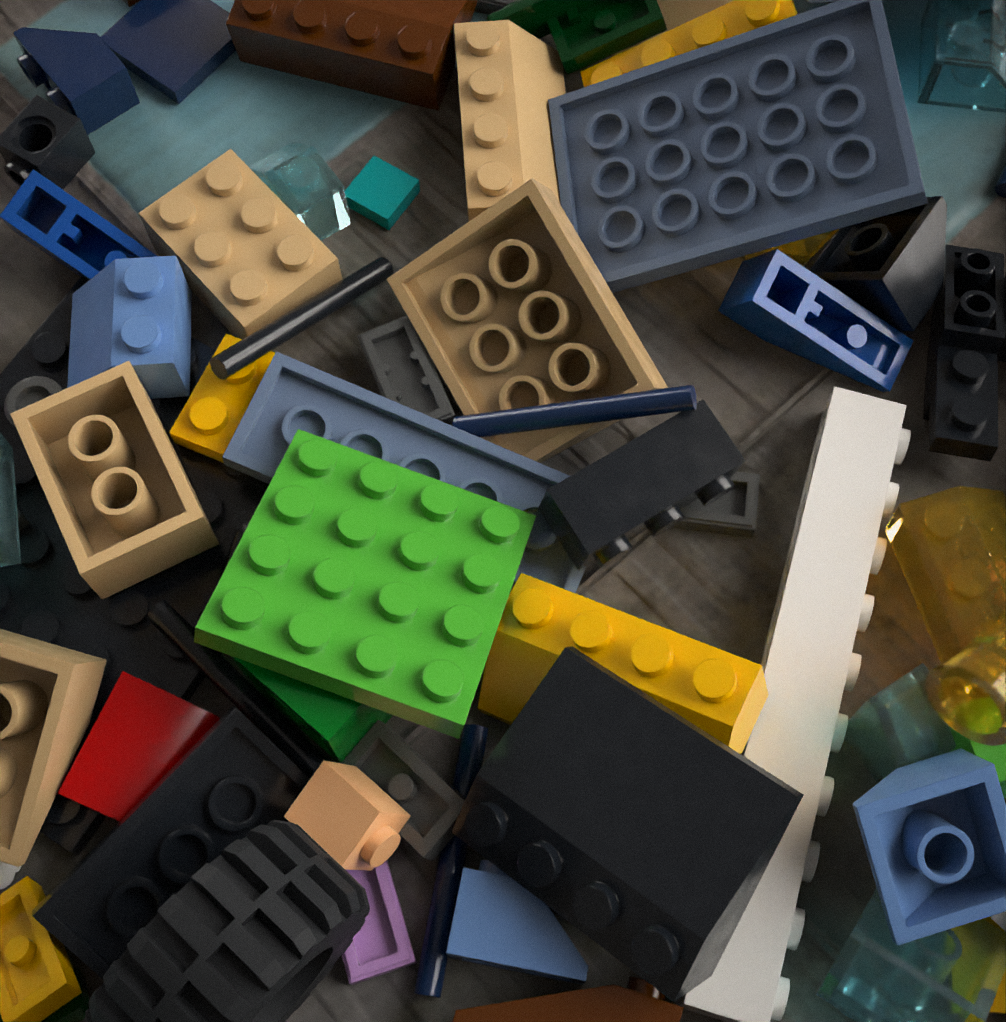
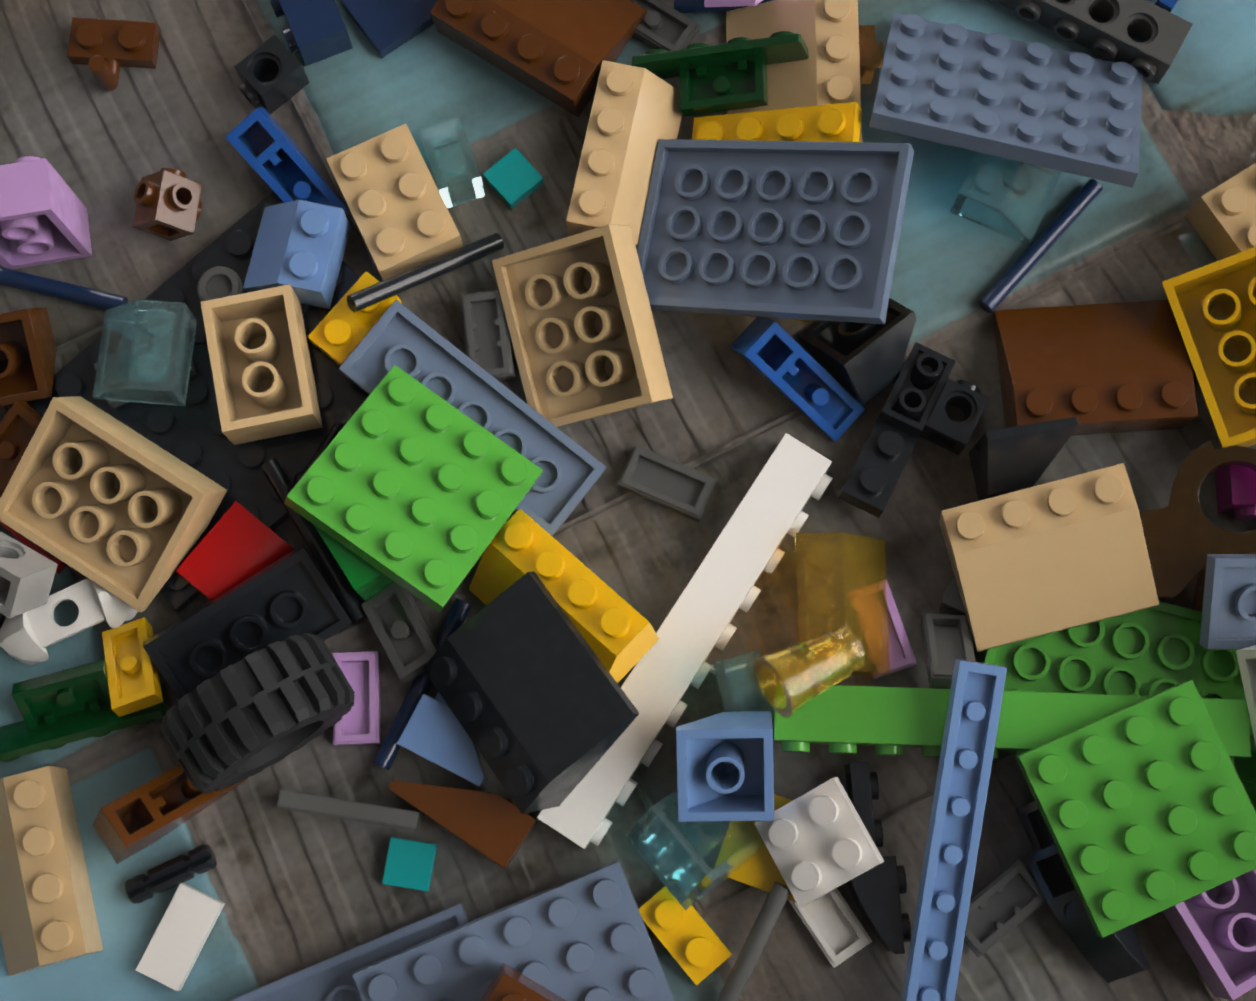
camera: 15 degrees right, 10 degrees up
(349, 816) = (358, 640): light nougat brick -> none
(579, 412) = (594, 402): dark blue bar -> none
(641, 487) = (624, 470): black brick -> none

